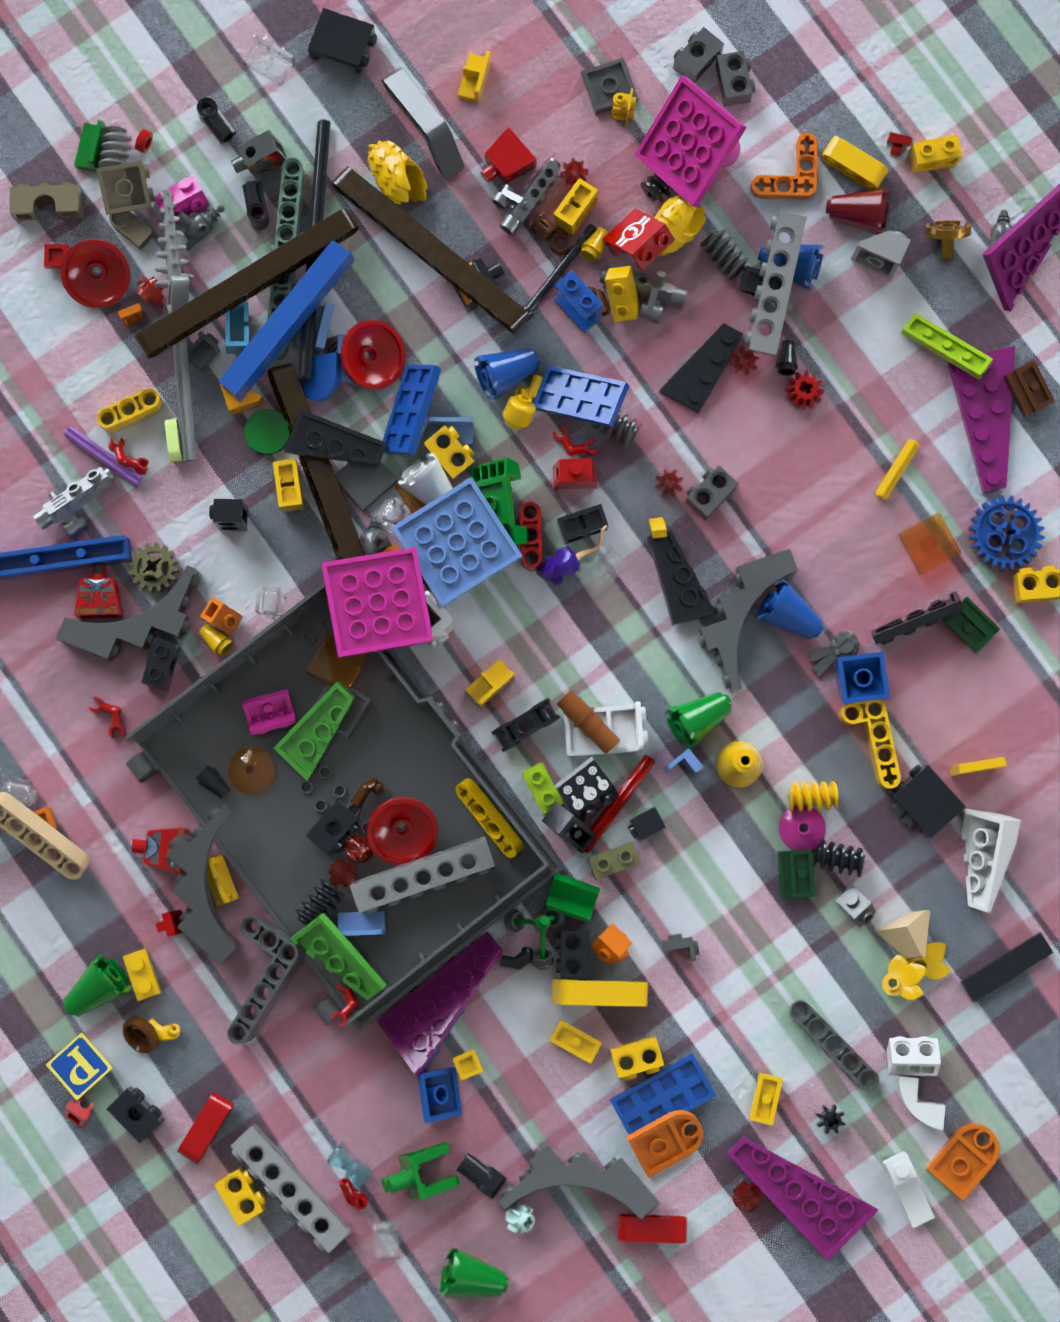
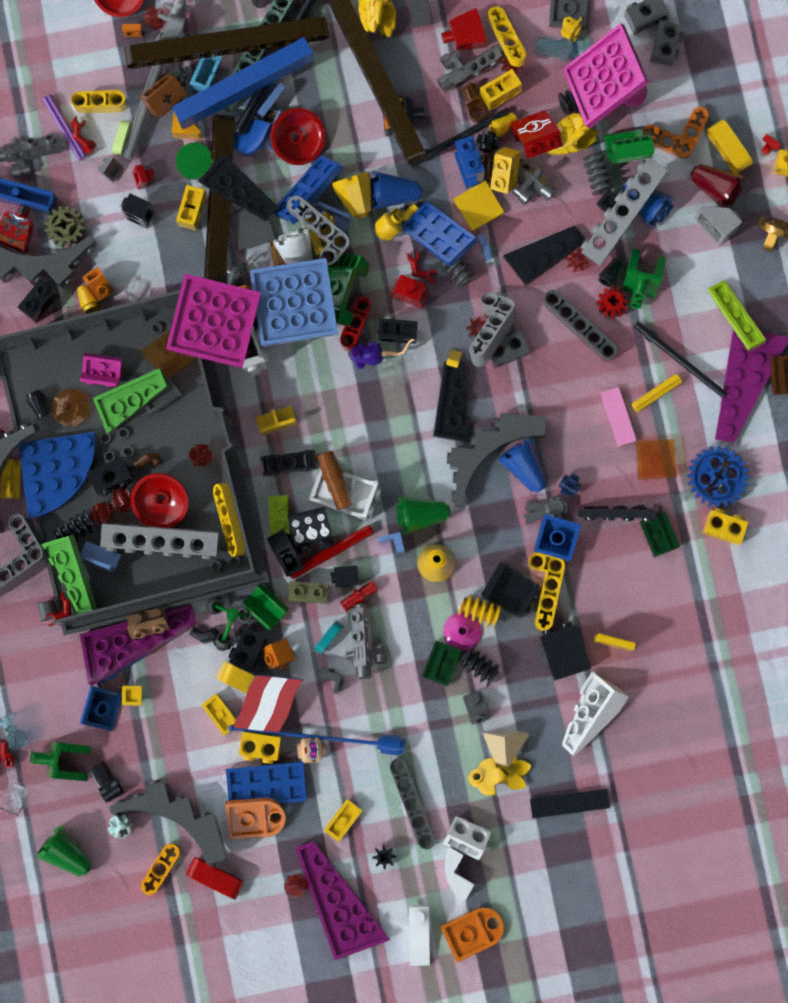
camera: 30 degrees right, 0 degrees up
(176, 480) = (110, 168): none -> dark grey tile
(201, 372) = (154, 98): none -> dark orange brick
(216, 474) = (142, 176): none -> red tile
(266, 848) = (55, 470): none -> blue plate
(424, 759) = (200, 455): none -> clear red gear
(441, 447) = (315, 228): none -> light grey beam
(449, 974) = (147, 623): none -> medium nougat bracket
(466, 391) = (355, 194): none -> yellow cone
(556, 144) = (509, 35): none -> yellow beam
(587, 270) = (487, 141): none -> black gear
(595, 1228) = (148, 878): none -> light orange beam
(607, 346) = (478, 206): none -> yellow tile
(610, 135) = (552, 48): none -> clear light blue piece
(628, 1006) = (269, 706): none -> flag
(636, 389) = (485, 247): none -> medium blue tile
(658, 900) = (328, 637): none -> teal beam
(670, 839) = (358, 596): none -> red pin
(686, 480) = (501, 317): none -> light grey beam
(695, 1036) = (310, 750): none -> light nougat head
(703, 899) = (362, 652): none -> flat silver piece
(748, 209) = (628, 146): none -> green plate
(792, 431) = (577, 316): none -> dark grey beam
(826, 355) = (642, 283): none -> green piece
(836, 759) = (511, 591): none -> black panel
(849, 613) = (569, 485): none -> dark blue gear
(863, 409) = (651, 336): none -> black bar
(866, 514) = (618, 416): none -> bright pink tile

